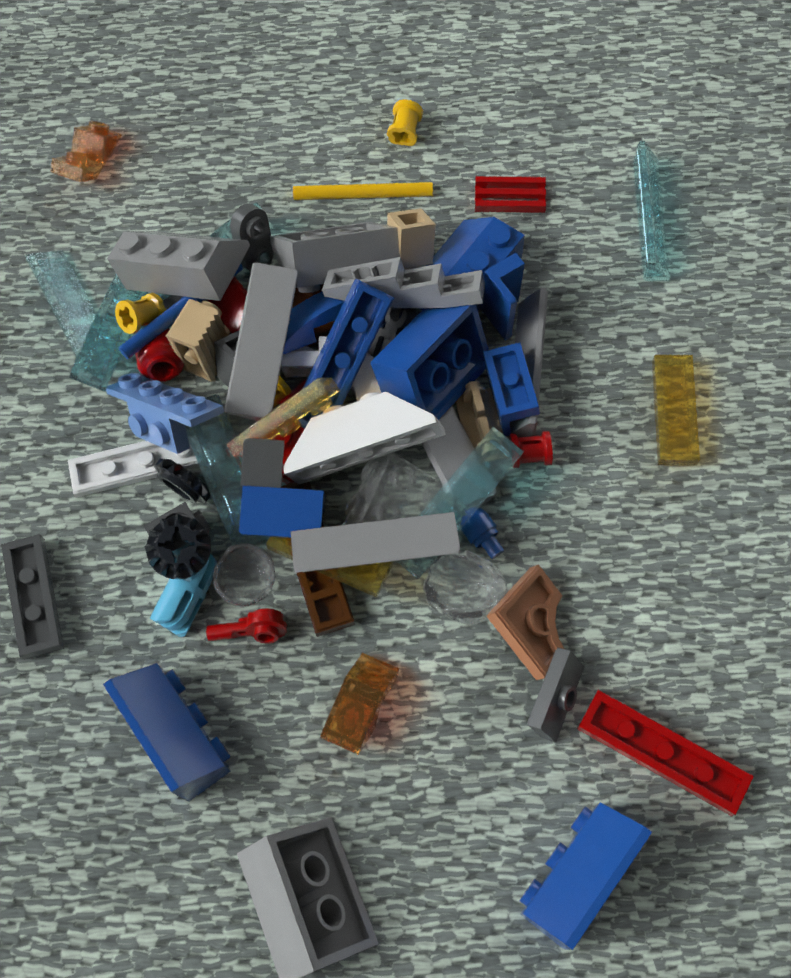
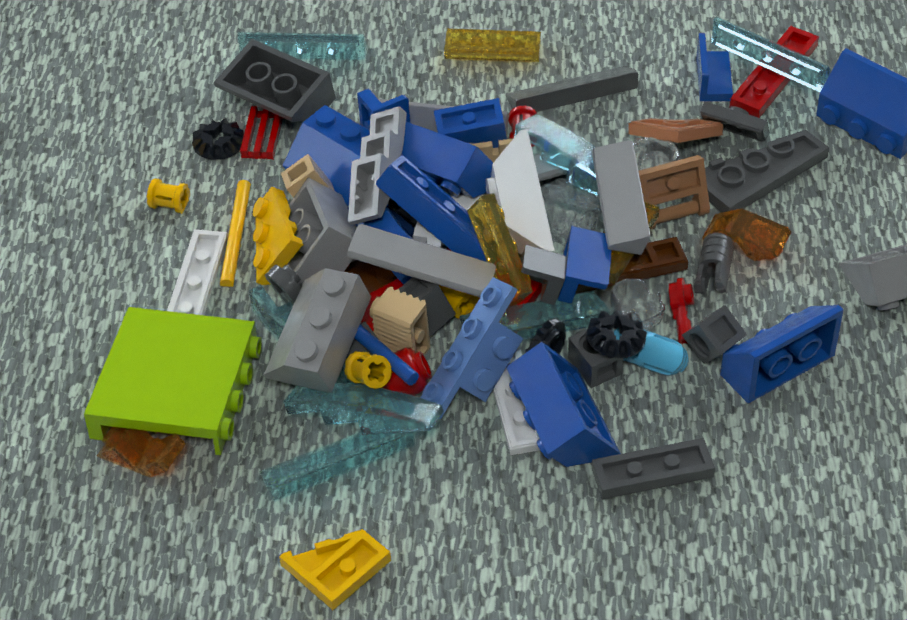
camera: 90 degrees left, 20 degrees down
(97, 503) = (560, 408): none -> blue slope
(156, 162) = (175, 375): none -> lime panel
(190, 656) = (714, 334): none -> dark grey brick
(291, 166) = (198, 272): none -> white tile
(321, 665) = (714, 262): none -> dark grey hinge
(345, 214) = (273, 233): none -> yellow wing
(414, 610) = (673, 182): none -> medium nougat plate
(466, 709) = (757, 172): none -> dark grey wing
(510, 161) = (224, 147): none -> black gear
(561, 189) = (277, 82): none -> dark grey slope
(611, 505) = (575, 89): none -> dark grey slope
(653, 671) = (713, 73): none -> blue panel
(675, 744) = (769, 54): none -> clear light blue slope

